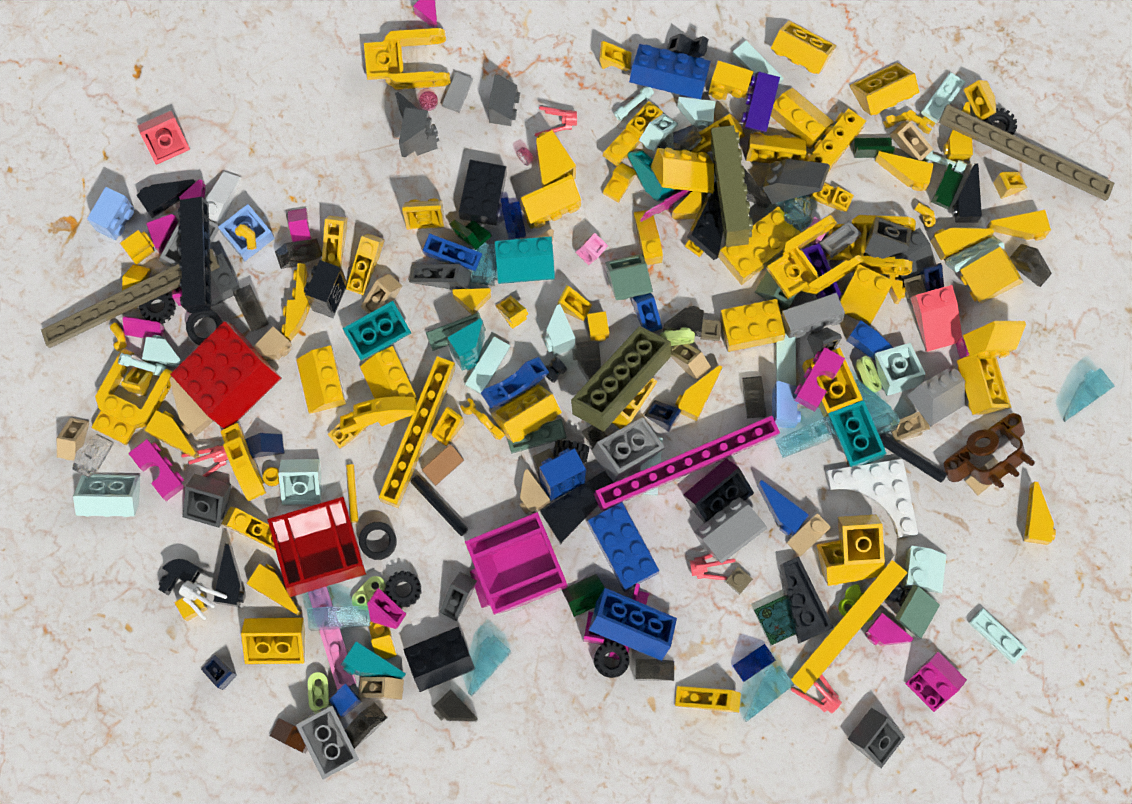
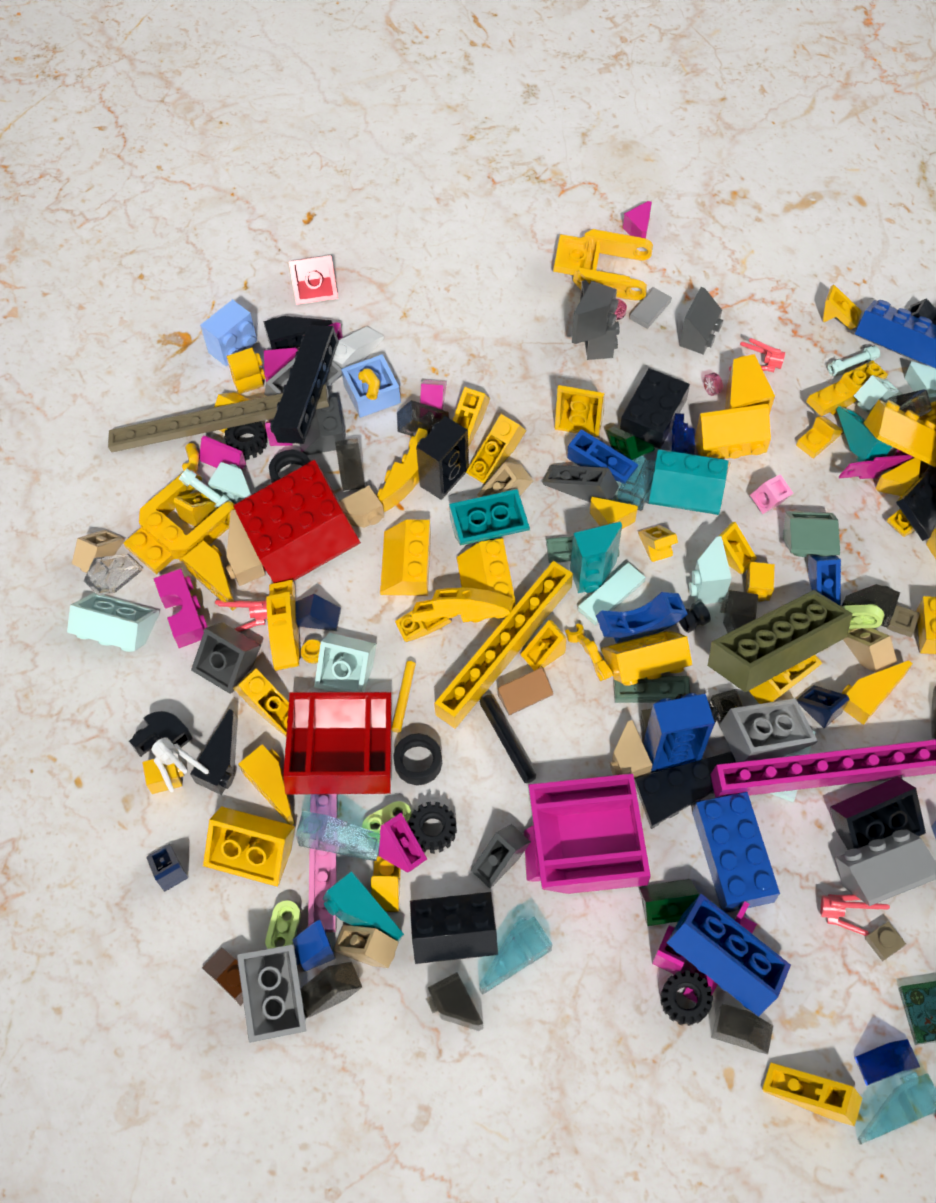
camera: 20 degrees right, 15 degrees down
(648, 238) = (844, 502): yellow slope -> none

